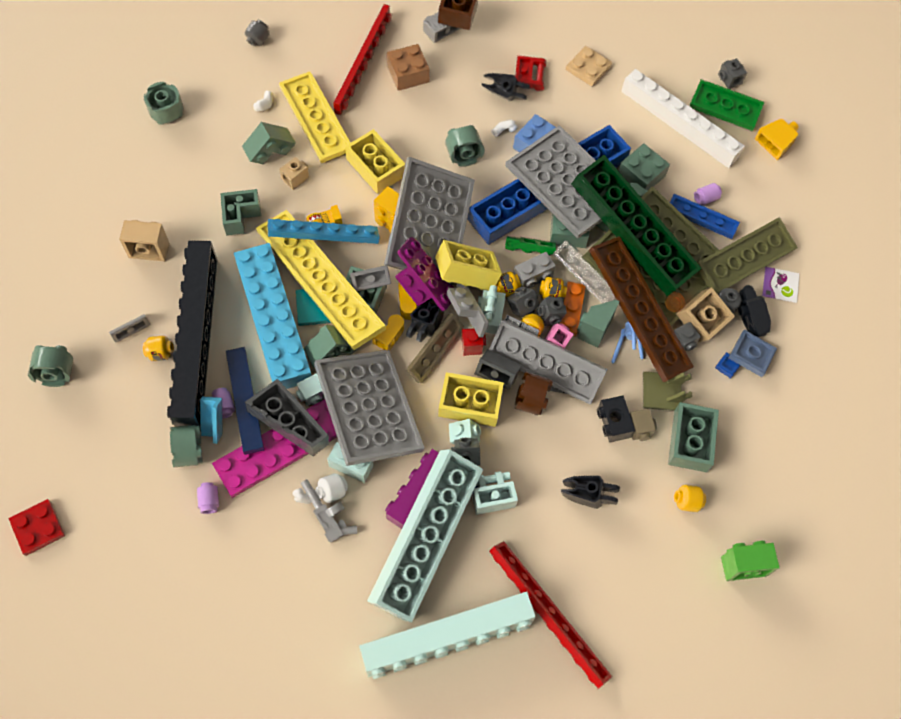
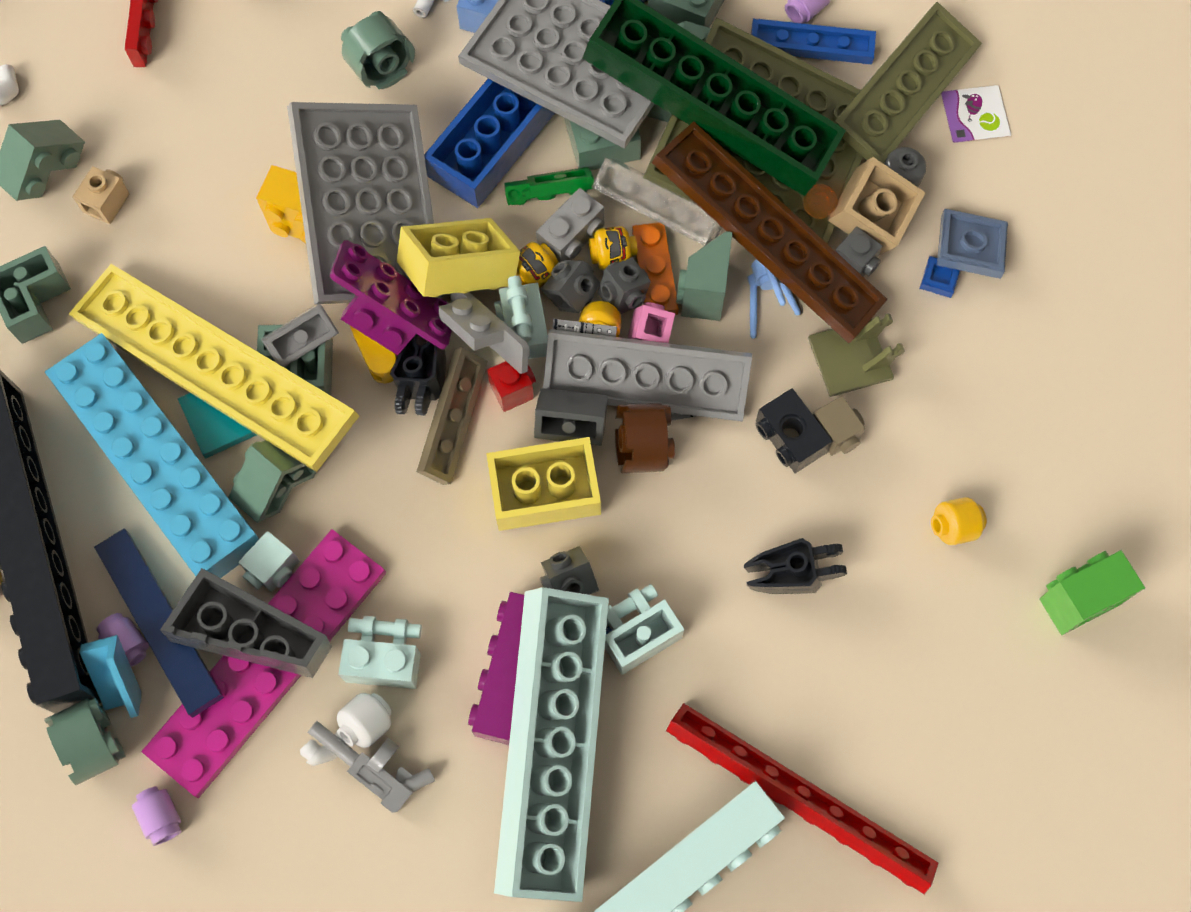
camera: 15 degrees left, 5 degrees up
(315, 116) = (103, 83): light yellow plate -> none
(322, 231) = (186, 281): dark azure plate -> none
(329, 216) = (185, 260): yellow leg -> none
(368, 407) = (375, 560): light grey plate -> none
(375, 161) = (234, 128): light yellow brick -> none
(393, 331) = (372, 411): yellow leg -> none
(464, 428) = (550, 538): light aqua bracket -> none
(693, 437) = (929, 417): sand green brick -> none
(754, 312) = (952, 174): black hinge -> none

